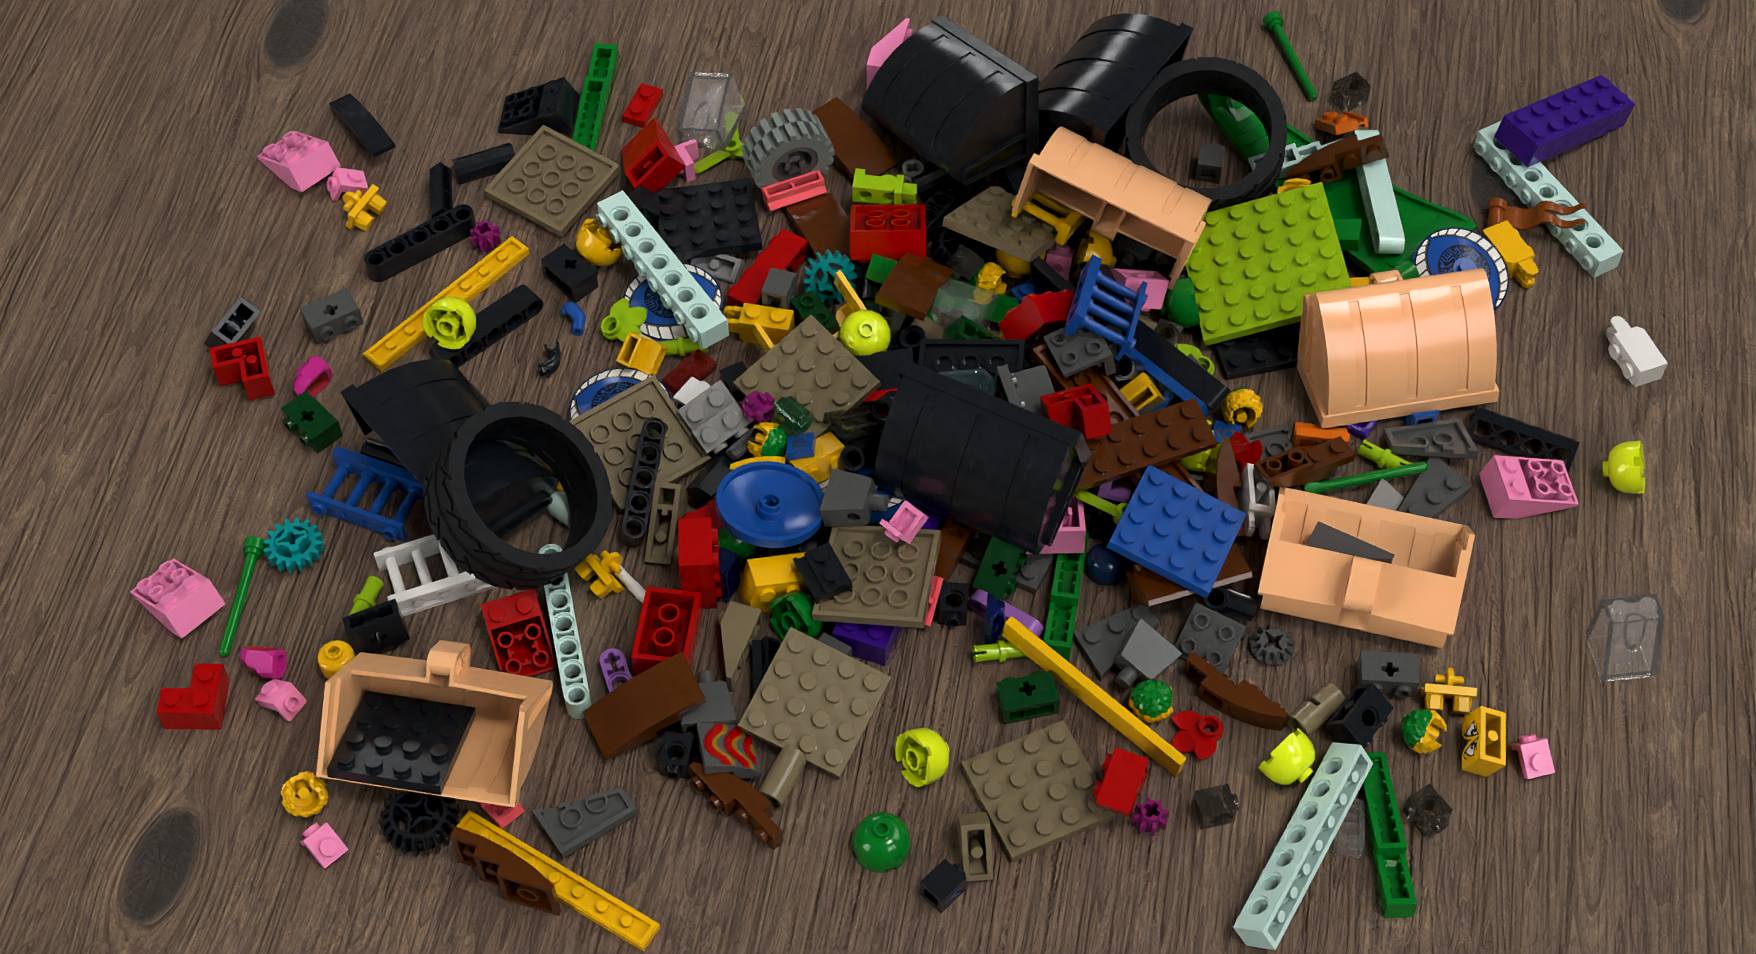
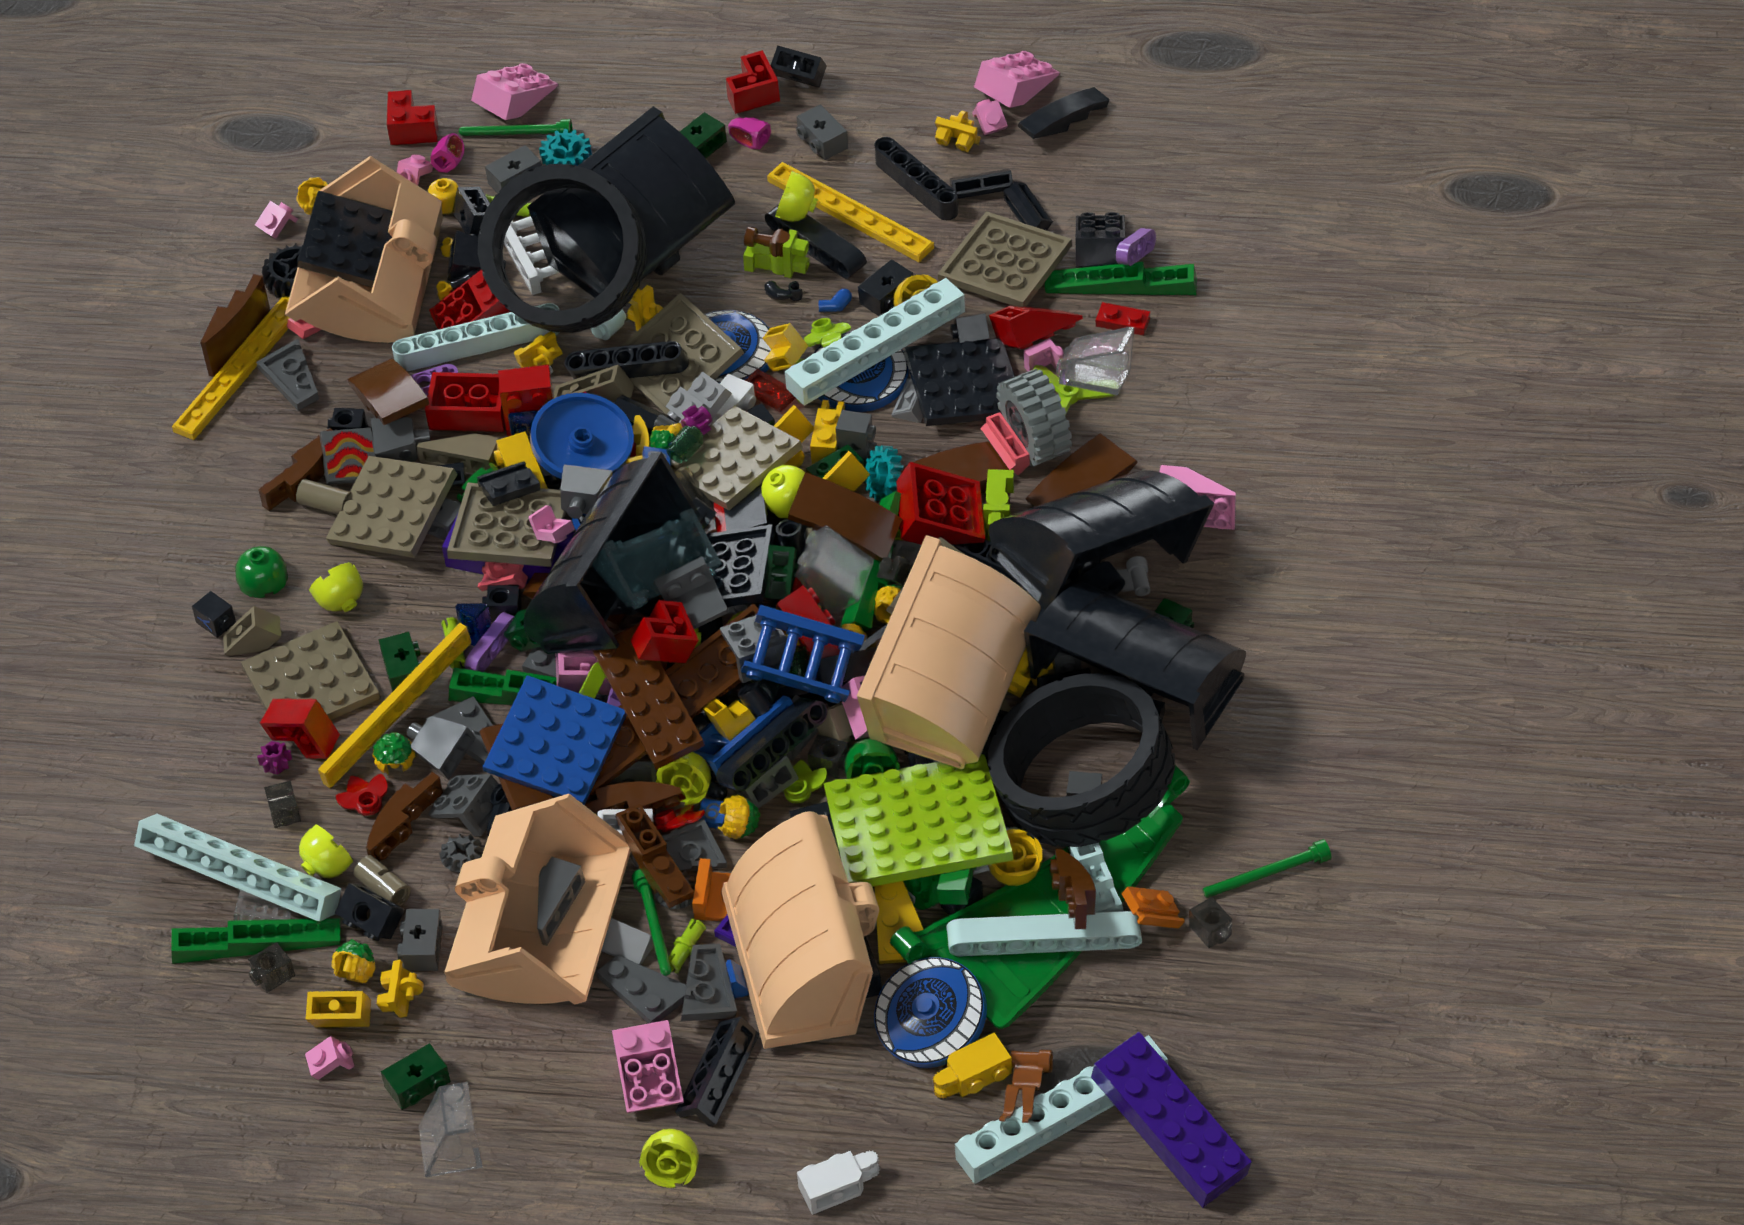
camera: 90 degrees right, 5 degrees down
(314, 594) = (511, 166): none -> dark grey brick
(453, 625) = (462, 261): none -> black torso
(485, 236) = (928, 222): magenta gear -> none
(506, 357) = (777, 252): none -> lime hips
(578, 78) = (1135, 246): none -> medium lavender beam
(784, 252) = (906, 435): red brick -> none
(1552, 677) = (415, 1076): none -> dark green brick

